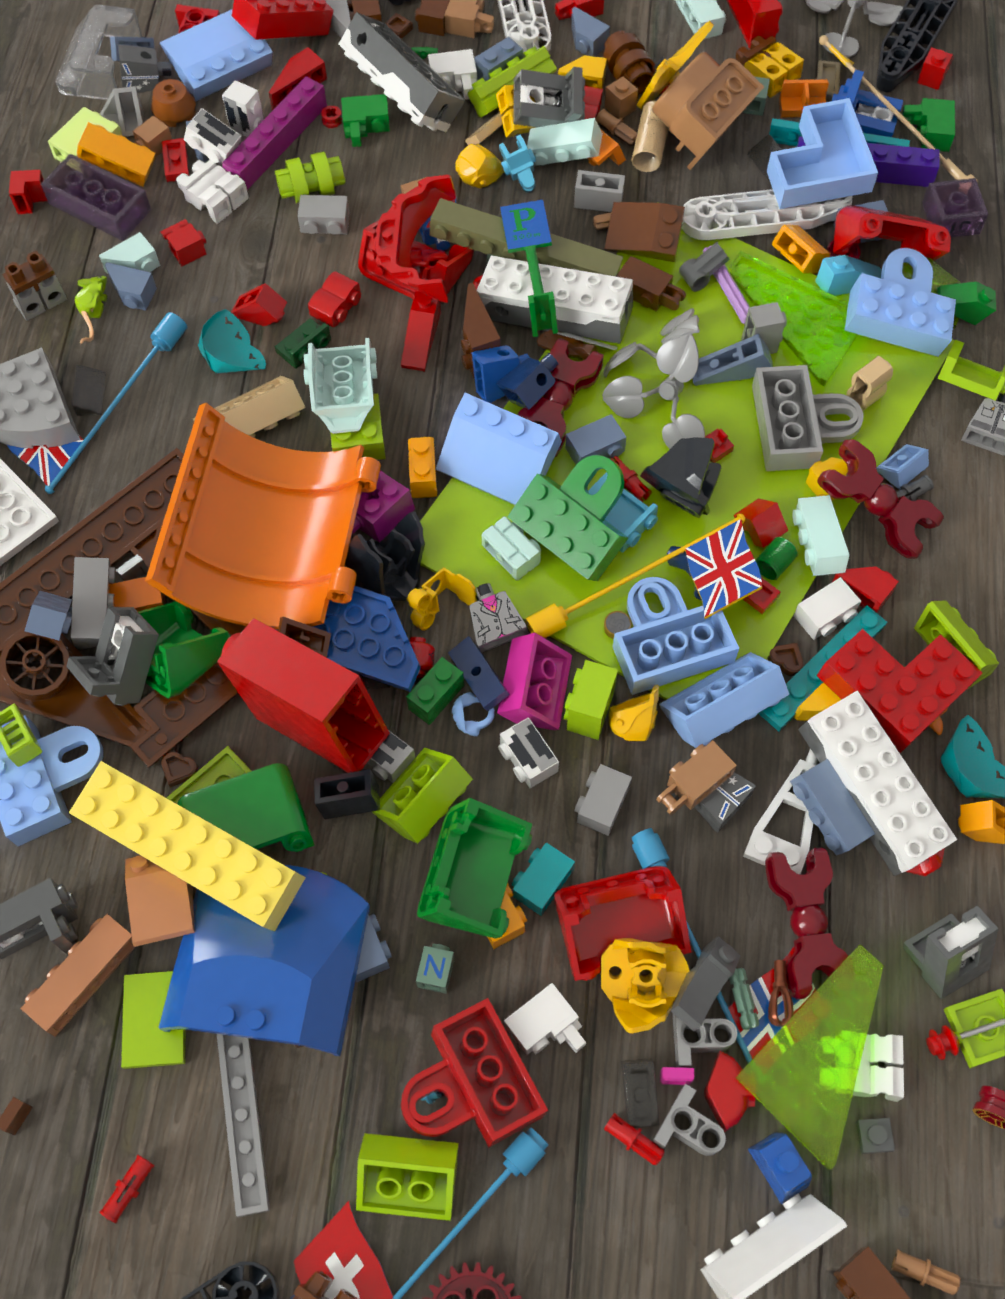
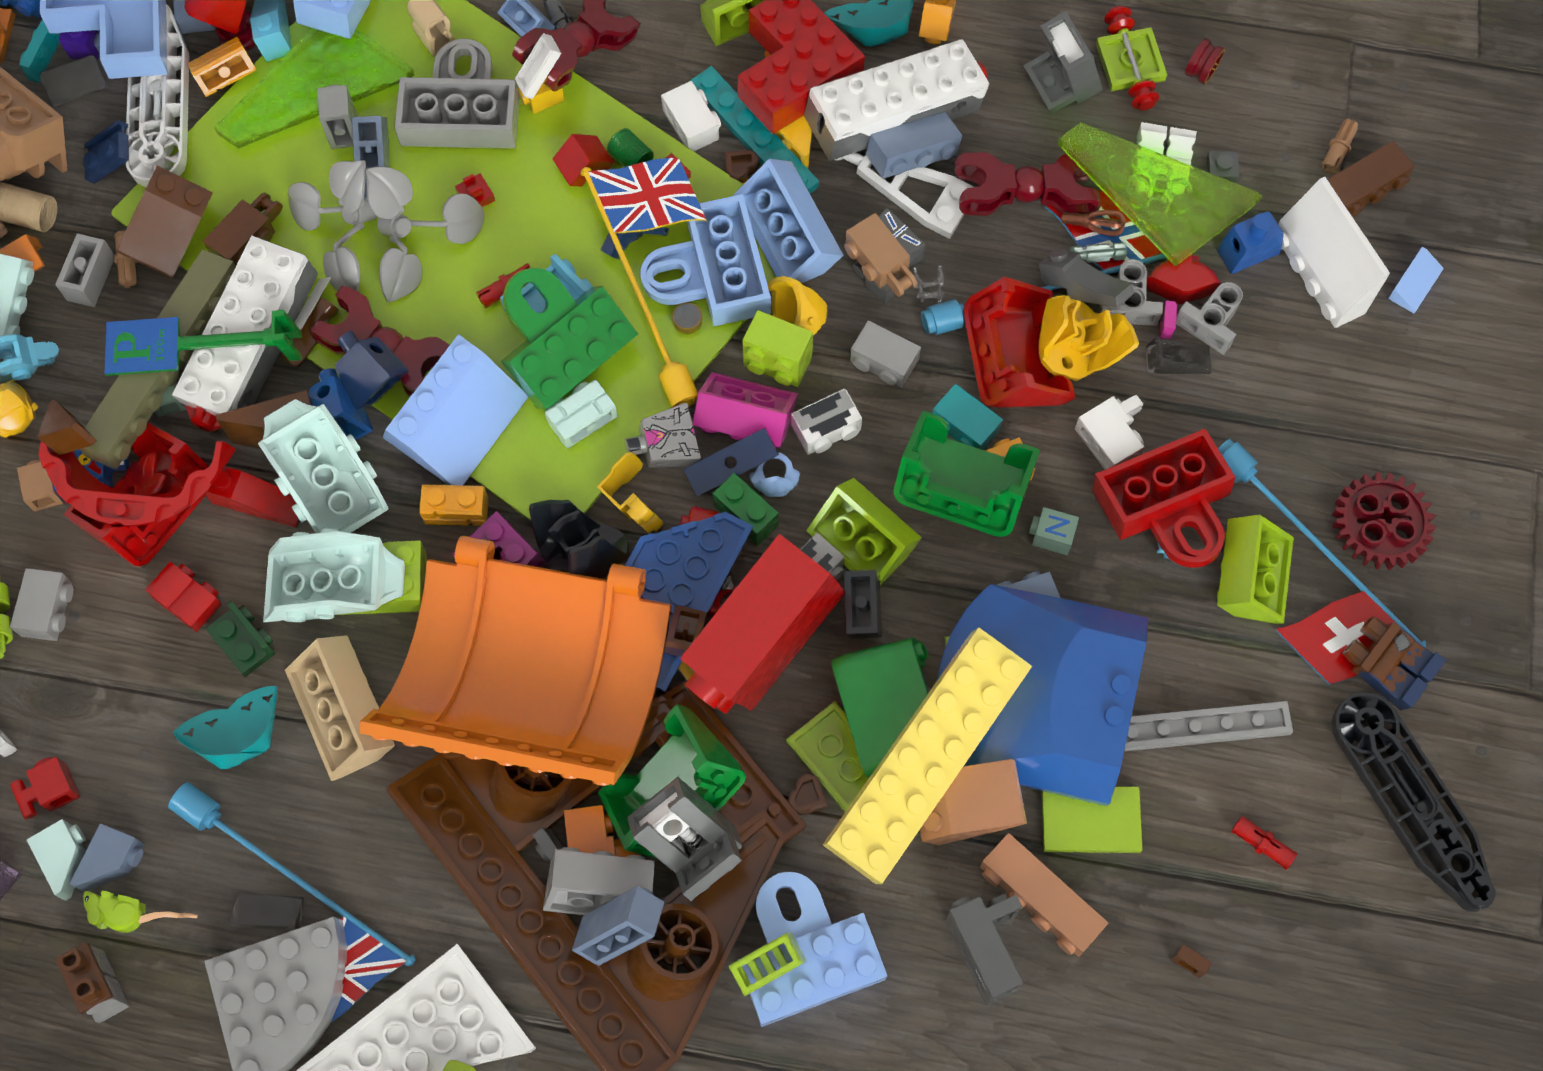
camera: 85 degrees left, 5 degrees up
(260, 306) = (176, 690): red slope -> none
(427, 356) = (320, 468): none -> light aqua slope
(449, 187) = (63, 430): none -> reddish brown slope
(597, 438) = (454, 309): sand blue brick -> none
(634, 1139) = (1224, 366): red axle -> none
(686, 475) = (526, 216): black piece -> none
(688, 846) = (935, 294): none -> clear piece
(698, 271) = (233, 174): dark grey piece -> none
(703, 187) = (106, 152): none -> dark blue plate
(731, 291) = (255, 149): lavender axle -> none
(821, 535) = (611, 102): light aqua brick -> none
(835, 461) = (537, 66): none -> white tile
(869, 585) = (670, 71): red slope -> none

